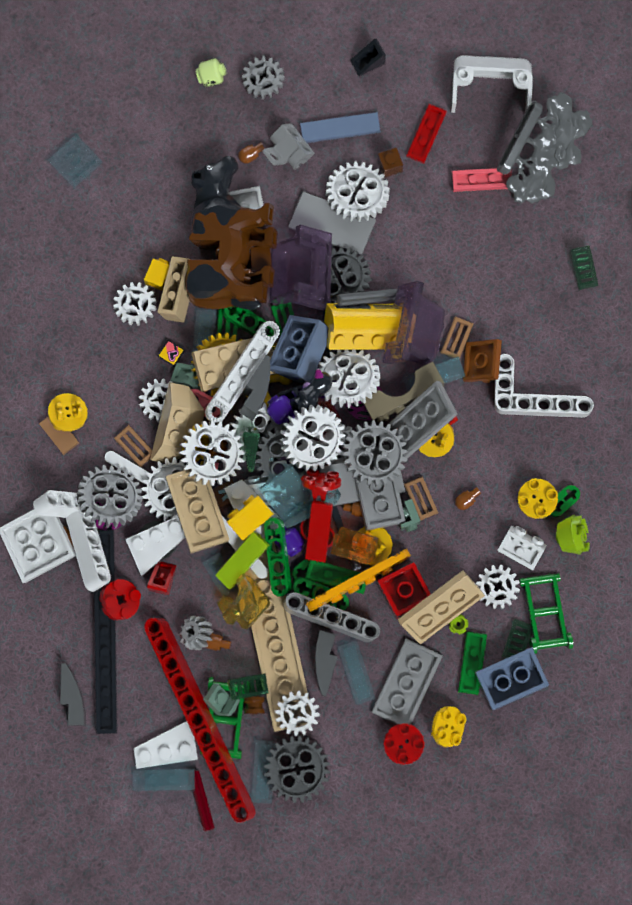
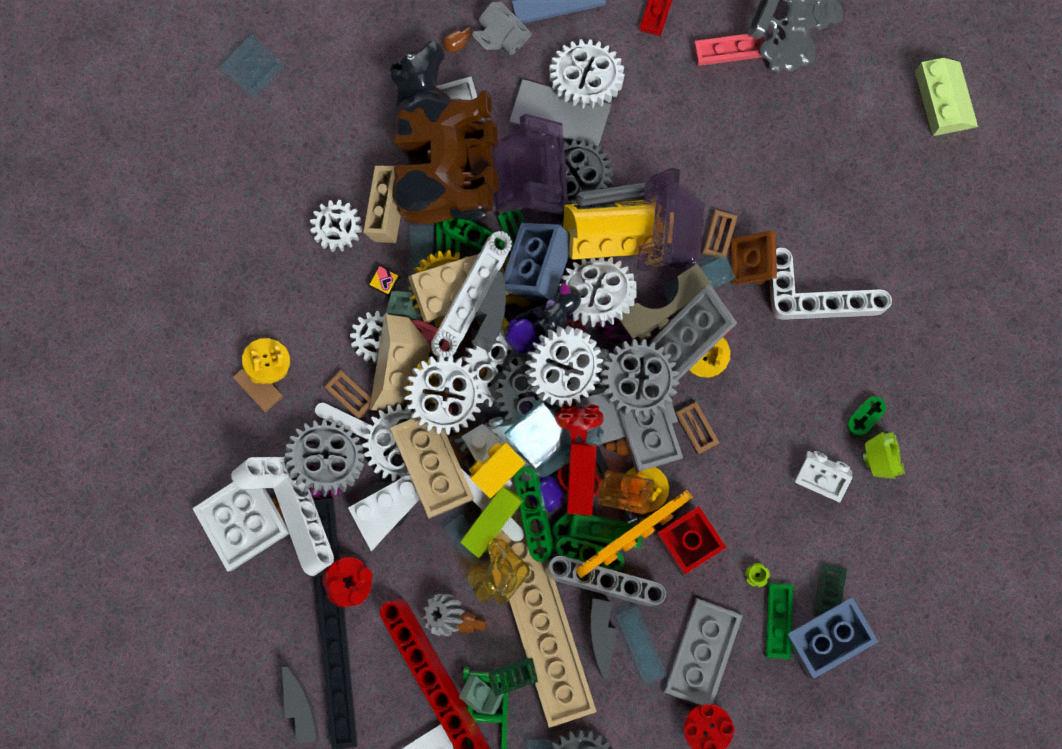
camera: 10 degrees left, 0 degrees up
(157, 273) = (359, 188): yellow brick -> none
(162, 578) = (396, 550): red slope -> none
(251, 440) = (489, 376): clear green slope -> none
(254, 705) = (522, 698): reddish brown wheel -> none
(293, 722) = (571, 715): white gear -> none
(390, 162) = (622, 37): reddish brown brick -> none
(410, 513) = (689, 447): sand green bracket -> none
(441, 607) = (737, 557): tan plate -> none
(448, 726) = (760, 702): yellow plate -> none
(466, 499) = (752, 423): dark orange cylinder -> none
(506, 592) = (795, 536): white gear -> none
(532, 506) = (842, 406): yellow plate -> none
(534, 642) = (889, 581): green piece -> none
(575, 261) = (867, 137): clear green slope -> none

